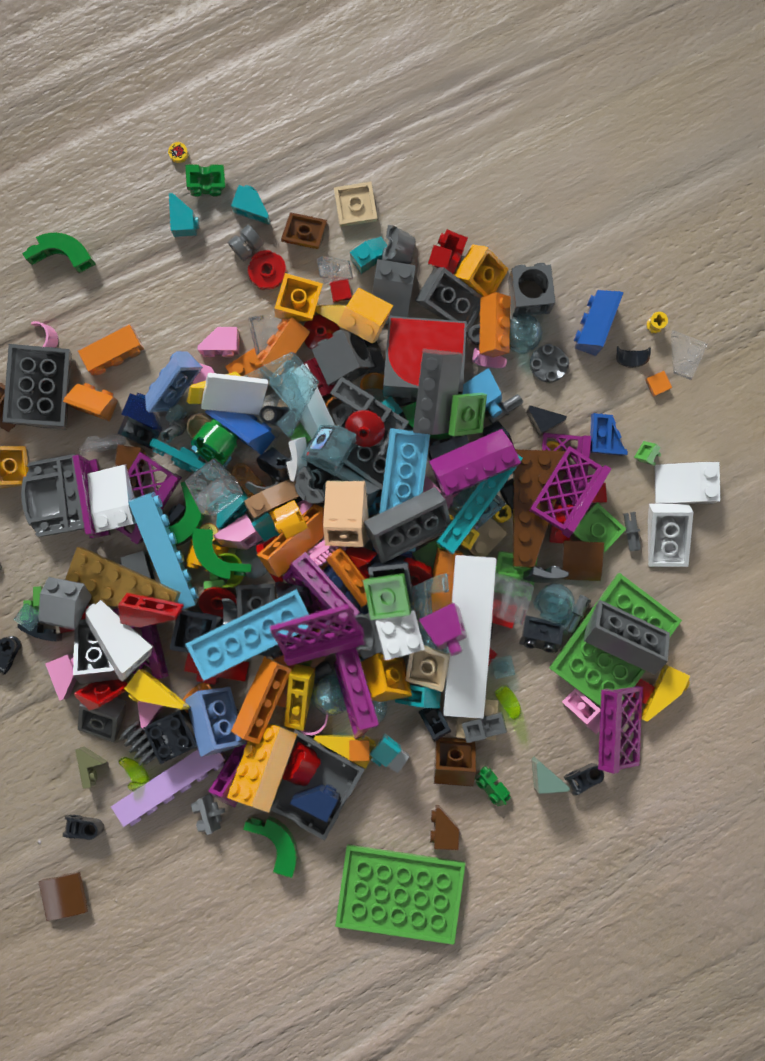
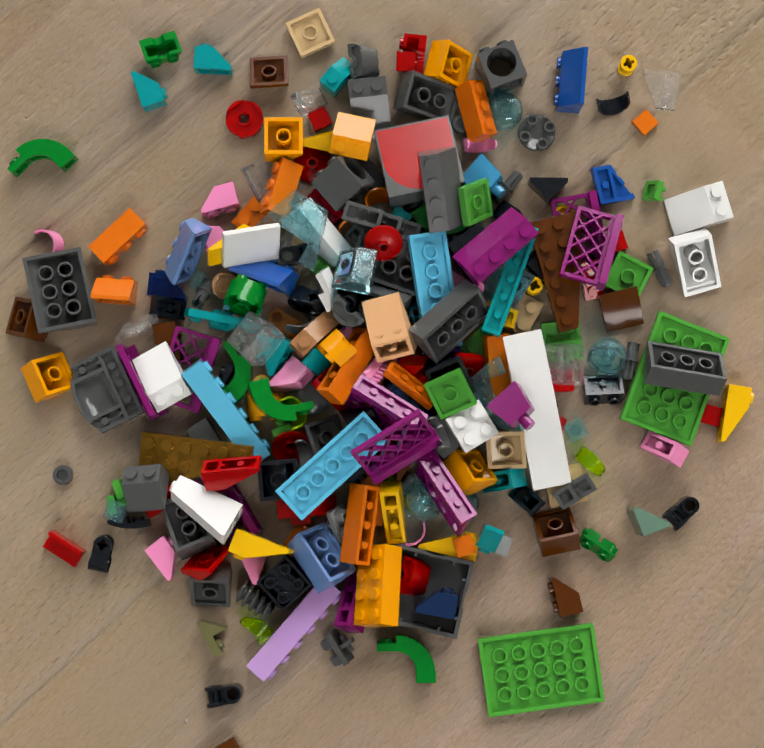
camera: 20 degrees left, 0 degrees up
(178, 152) = (126, 30): tile -> none
(241, 688) = (336, 521): none -> light grey hips
(248, 236) = (217, 92): dark grey wheel -> none
(549, 575) = (586, 334): black slope -> none
(612, 729) = (694, 459): magenta fence -> none

